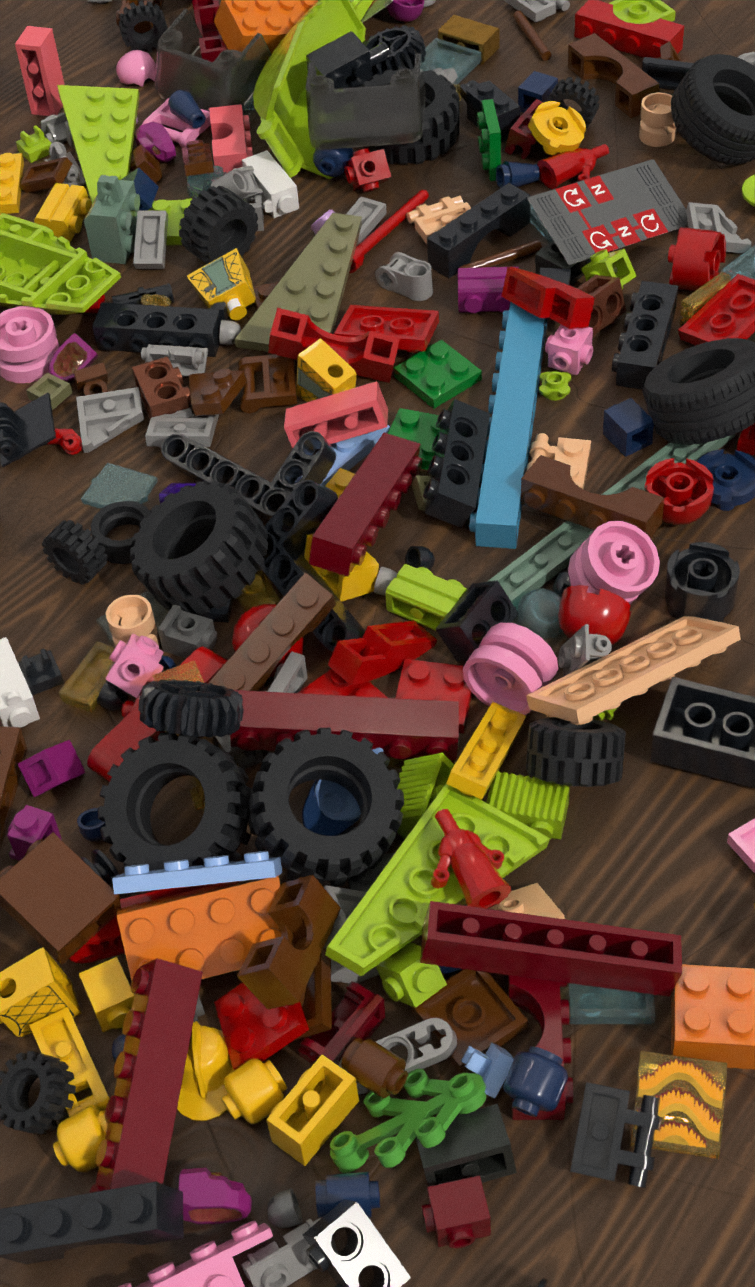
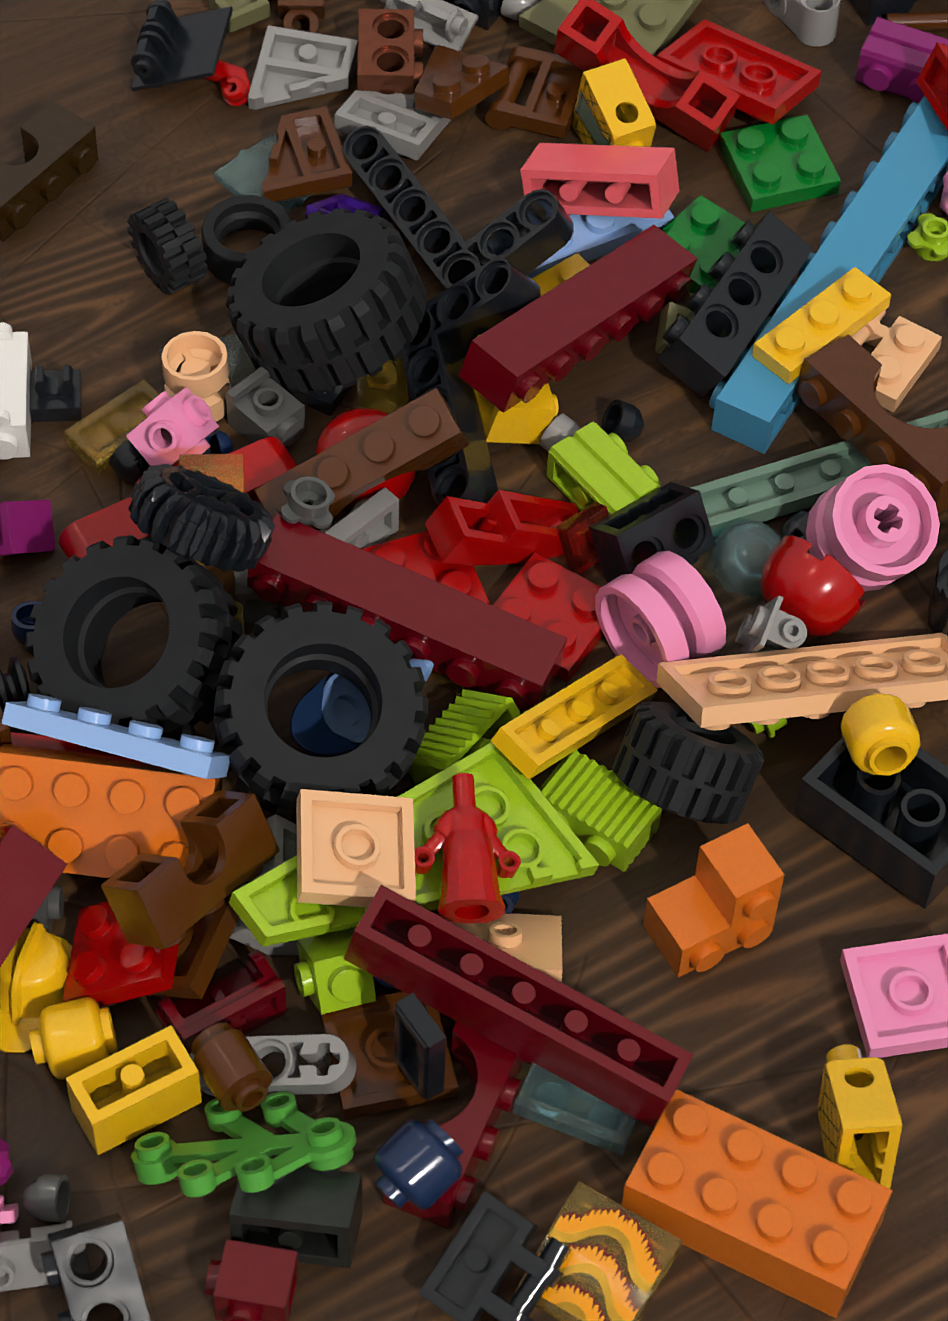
camera: 15 degrees right, 5 degrees up
(139, 467) = (306, 157): none -> reddish brown wing
(251, 675) = (308, 502): none -> dark grey plate
(349, 1187) = (141, 1208): dark blue brick -> none
(394, 885) = (353, 847): none -> light nougat plate
(430, 640) = (577, 539): none -> clear red tile
(490, 1066) = (374, 1122): light blue tile -> none
(498, 1002) = (419, 1047): none -> black tile
(518, 455) = (823, 320): none -> yellow plate
(638, 836) = (718, 908): none -> orange brick
(692, 687) = (880, 734): none -> yellow head

